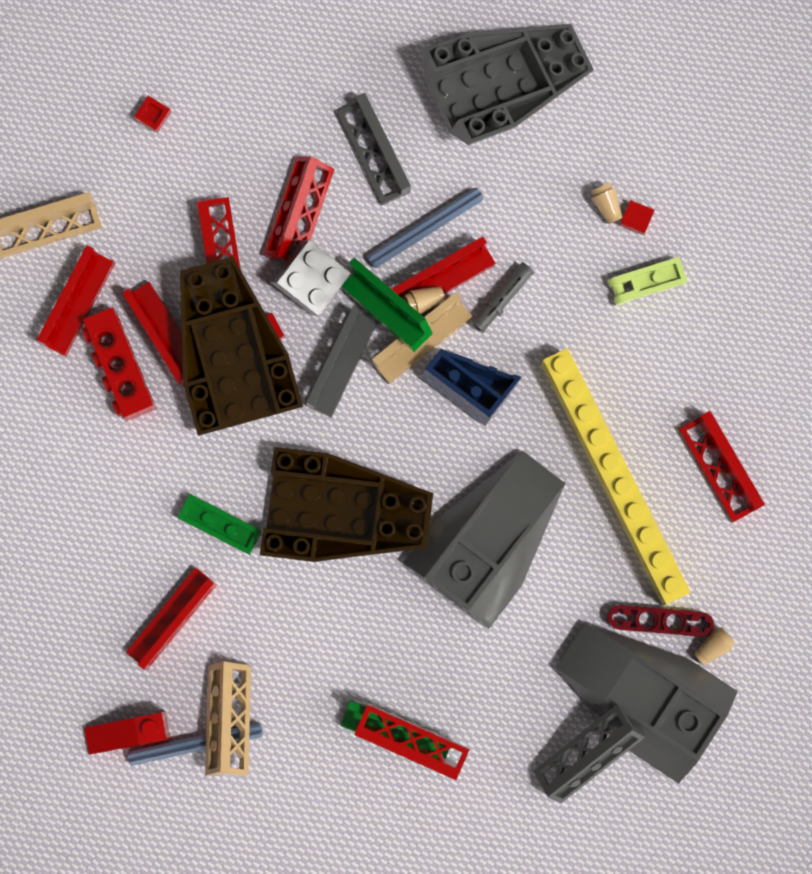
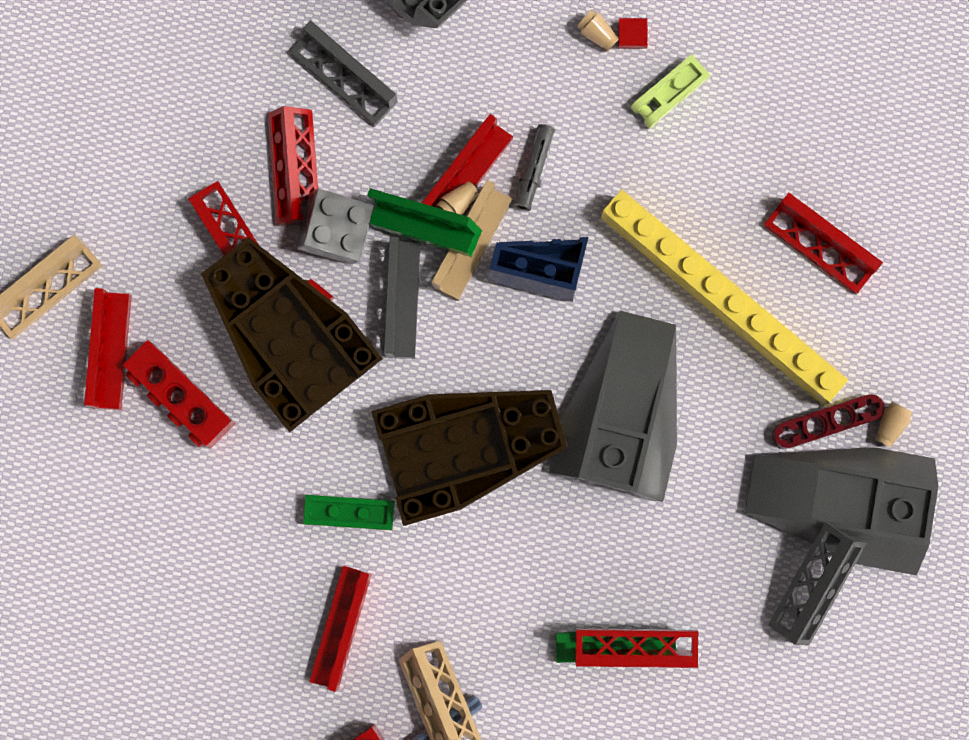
camera: 20 degrees left, 0 degrees up
(152, 114) = (105, 130): red plate -> none
(158, 325) = (202, 339): red fence -> none
(425, 227) = (427, 130): sand blue axle -> none

